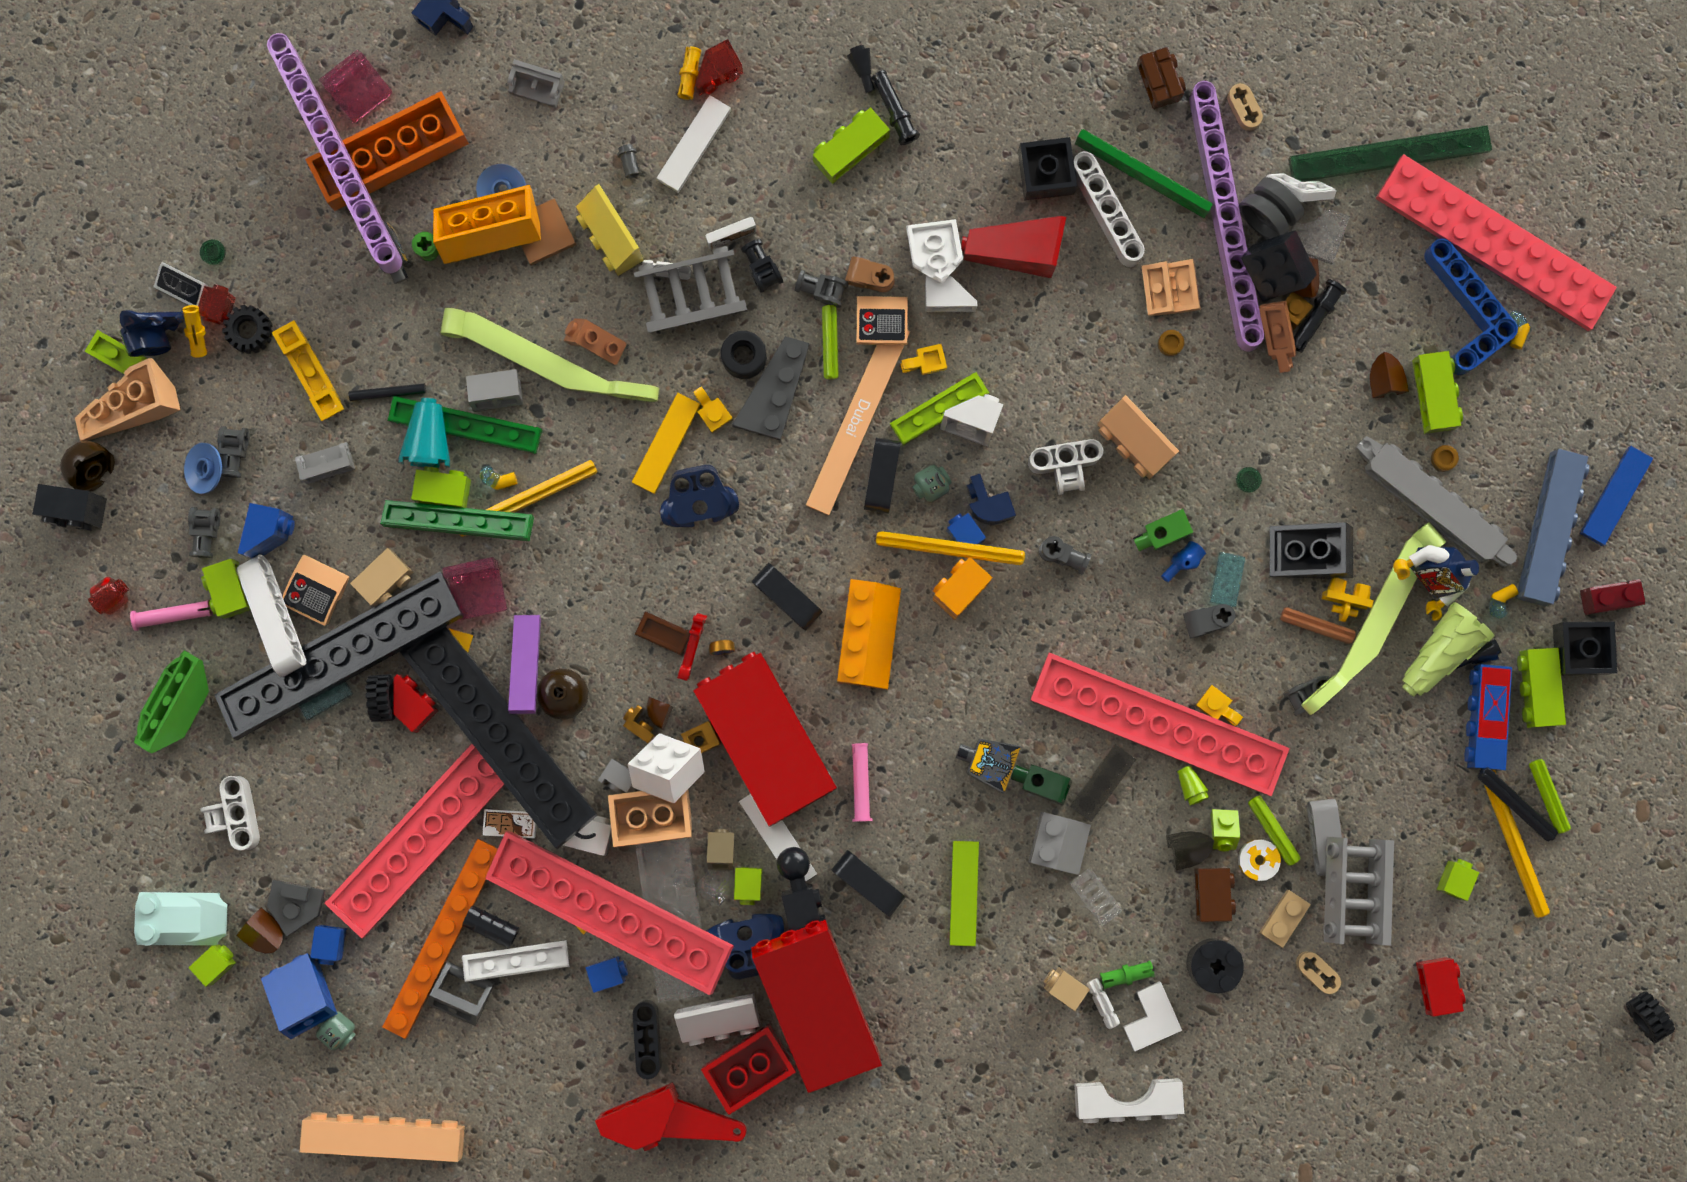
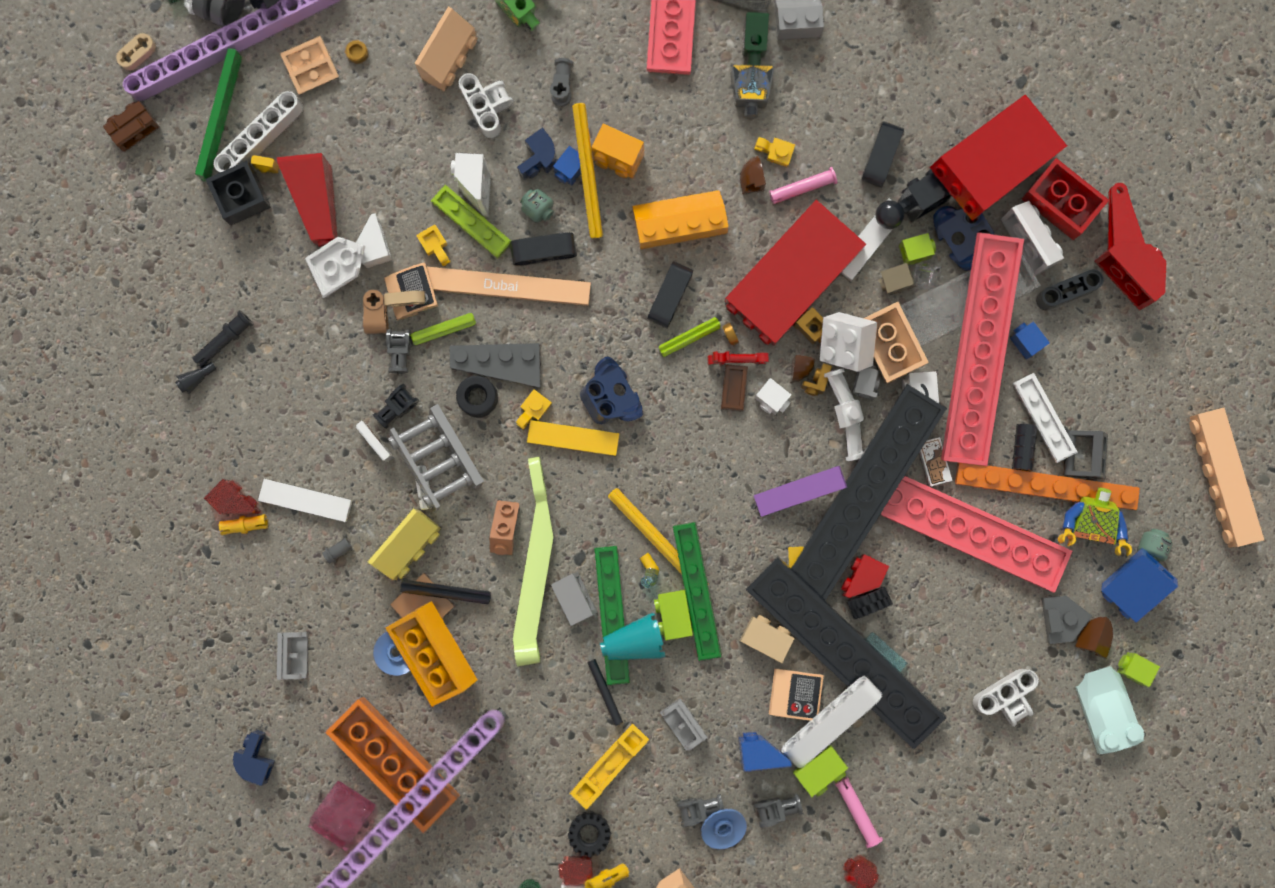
camera: 105 degrees left, 0 degrees up
(172, 703) = (935, 782): bright green wedge -> none
(328, 944) = (1086, 577): blue brick -> none
(383, 975) = (1096, 521): none -> torso
(420, 241) = (465, 708): bright green bush -> none
(477, 587) = (748, 554): clear pink bracket -> none
(546, 258) = (445, 591): none -> black axle
(574, 694) = (805, 461): dark brown cylinder -> none
(591, 745) = (848, 413): none -> white plate
(636, 670) = (773, 397): none -> white brick
(734, 603) = (689, 337): none -> lime axle
(850, 144) = (266, 365): lime brick -> none
(872, 308) = (404, 298): none -> tan beam
(891, 730) = (752, 176): none -> reddish brown brick
(909, 769) = (778, 151): none -> yellow plate
(964, 893) = (863, 78): lime tile -> none
(1071, 205) = (264, 164): none -> yellow tile

